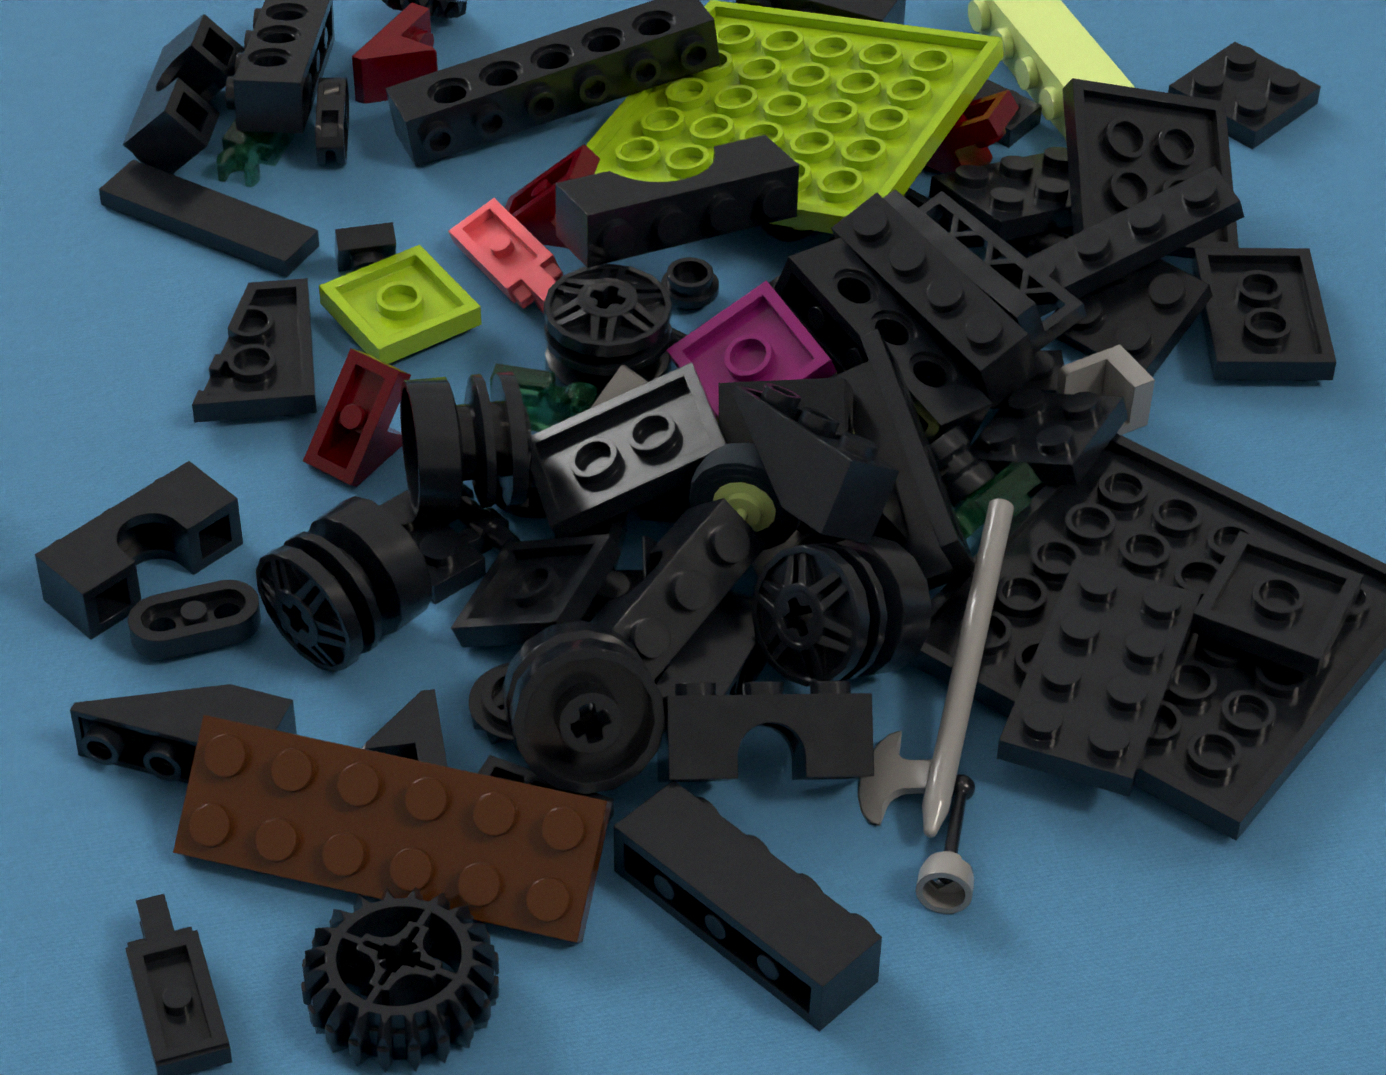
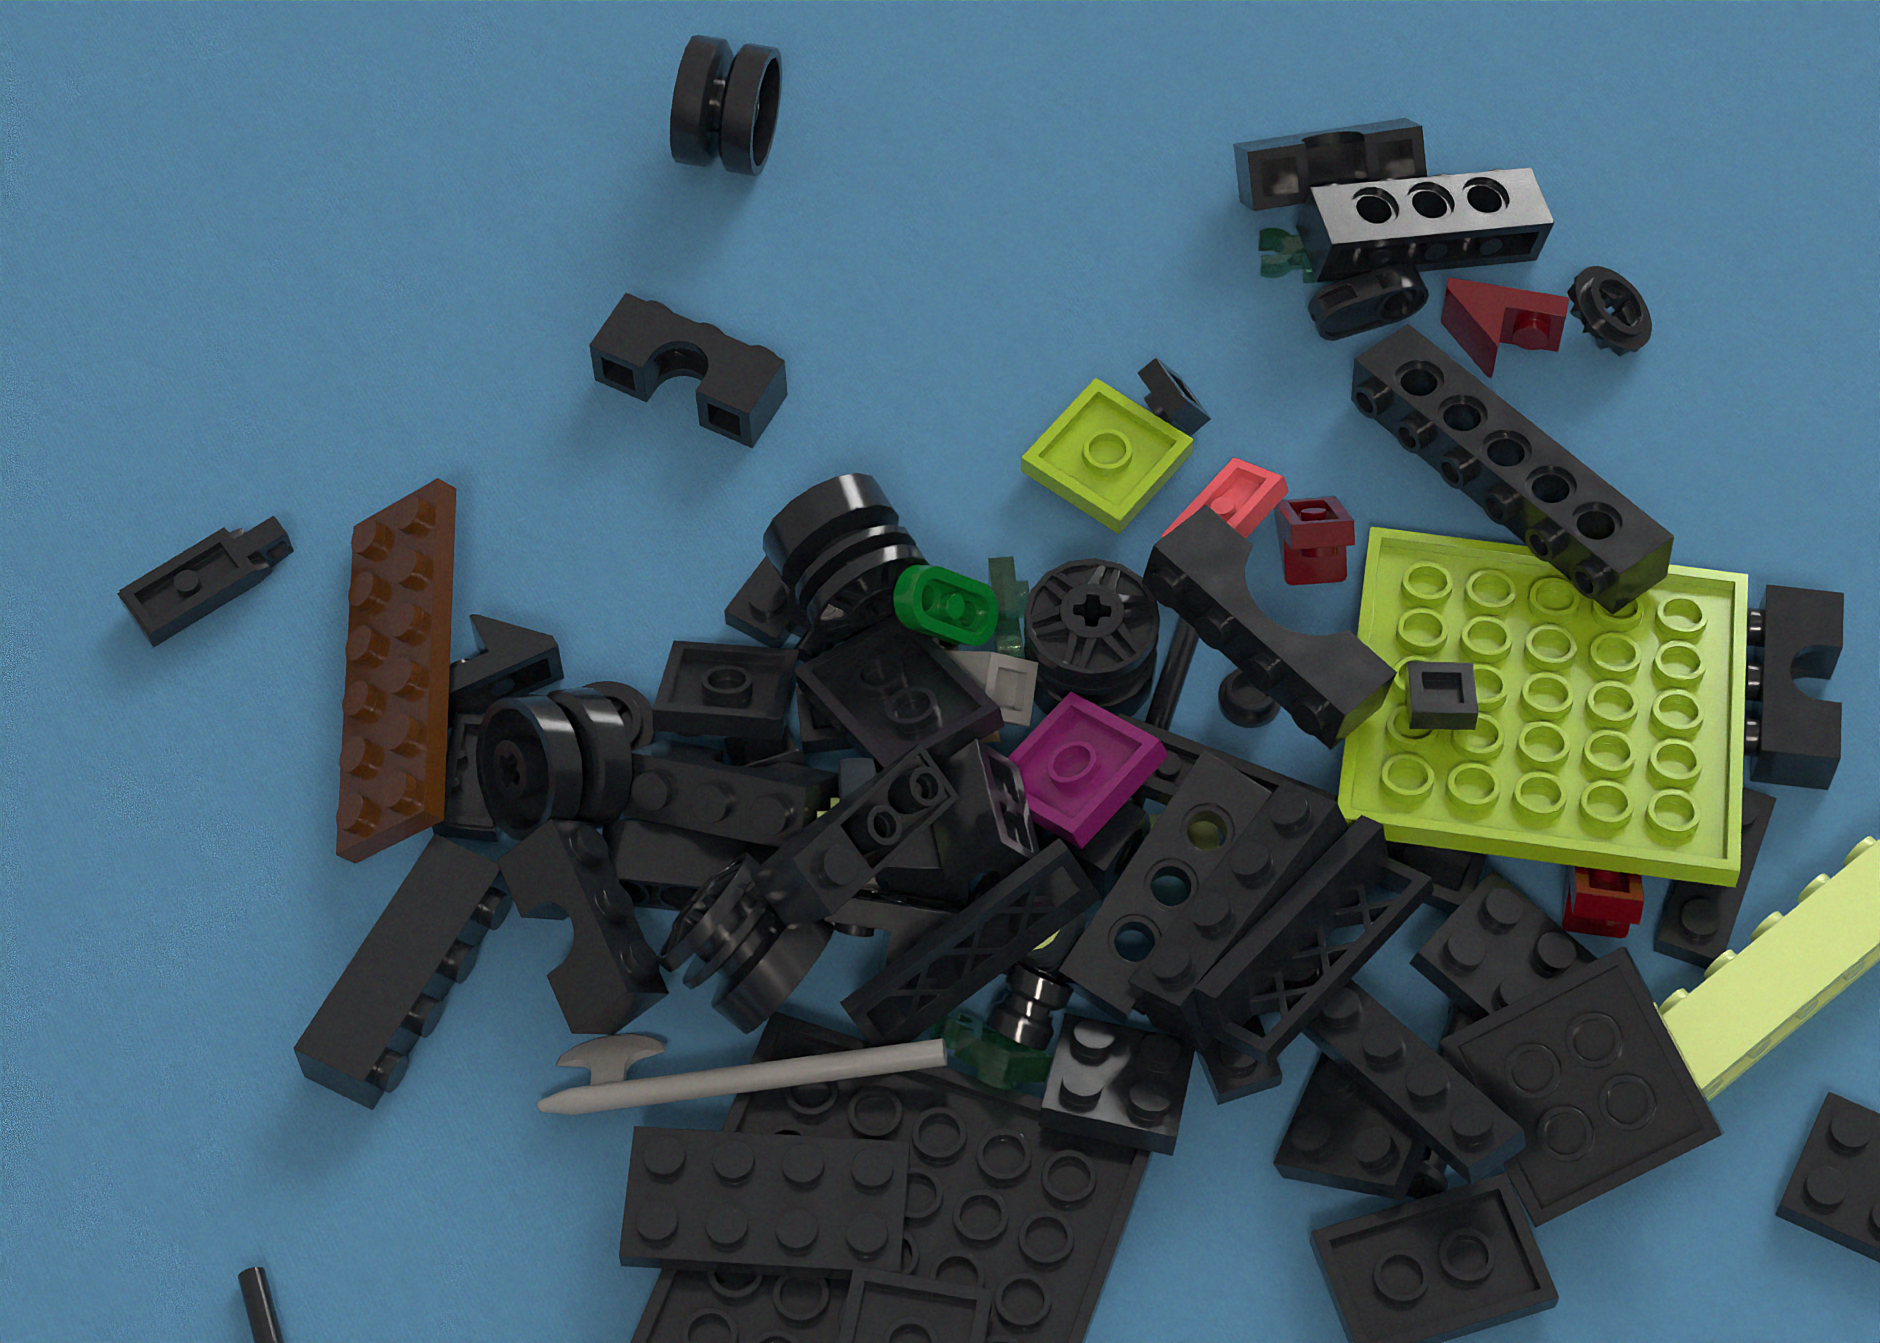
camera: 75 degrees right, 15 degrees up
(162, 729) = (486, 501): black slope -> none
(194, 619) = (626, 446): black plate -> none
(209, 217) = (1183, 257): black tile -> none
(266, 359) = (984, 378): black wing -> none
(344, 583) = (664, 532): black wheel -> none
(355, 425) = (920, 476): dark red slope -> none
(410, 999) = (272, 757): black gear -> none
(547, 393) = (945, 605): none -> green plate
(787, 131) = (1441, 695): none -> black plate
(955, 876) = (492, 1131): light grey hinge -> none
(1112, 374) = (1220, 1131): light grey panel -> none

